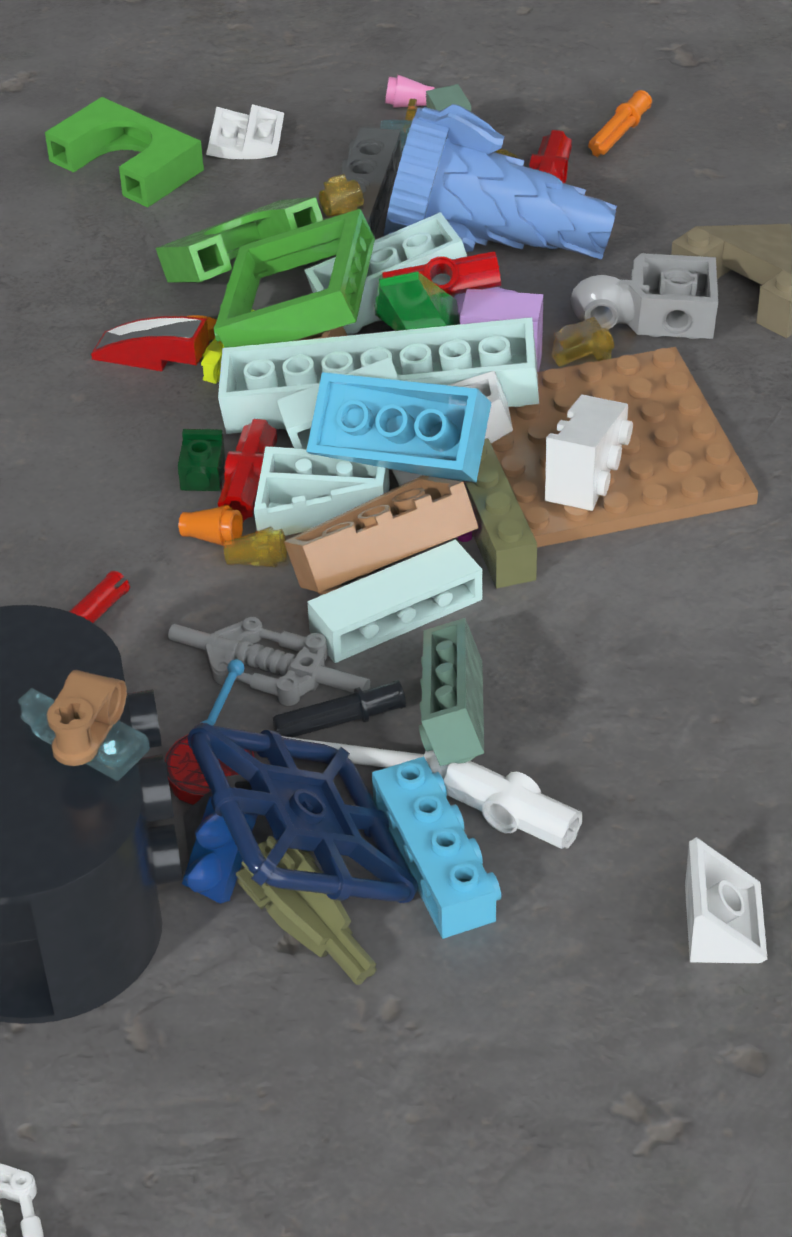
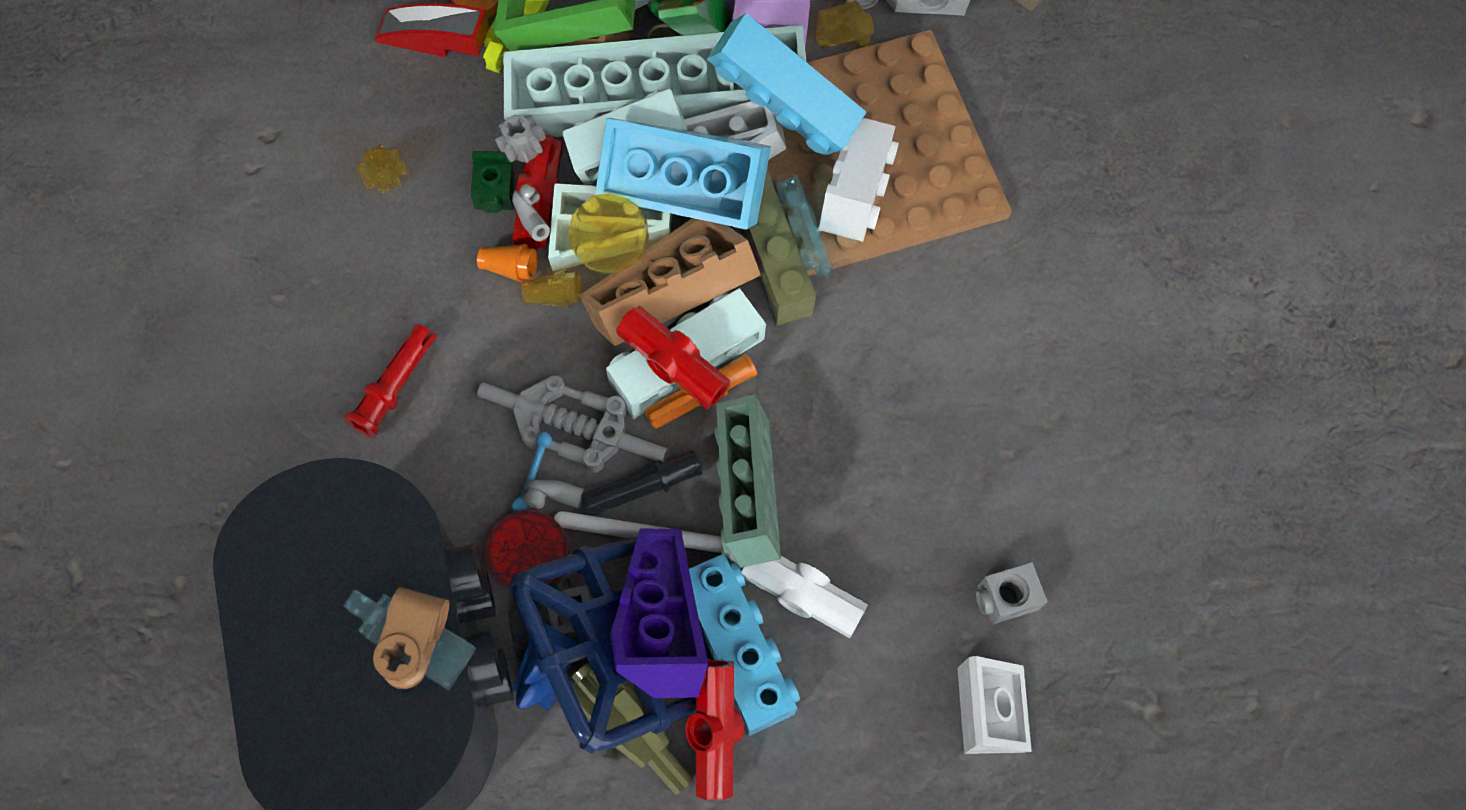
camera: 10 degrees left, 25 degrees up
(87, 449) = (382, 168): none -> clear yellow gear
(231, 711) = (554, 490): none -> light grey arm
(233, 414) = (520, 138): none -> light grey gear
(236, 477) = (528, 215): none -> light grey arm
(318, 482) = (608, 233): none -> clear yellow tile
(347, 792) = (657, 620): none -> dark purple wedge
(379, 585) = (673, 357): none -> red piece
(402, 907) = (715, 731): none -> red piece
(404, 636) = (682, 403): none -> orange axle
(509, 351) = (785, 85): none -> medium azure brick
(526, 486) = (804, 224): none -> clear light blue hinge
(745, 810) = (1023, 582): none -> light grey brick

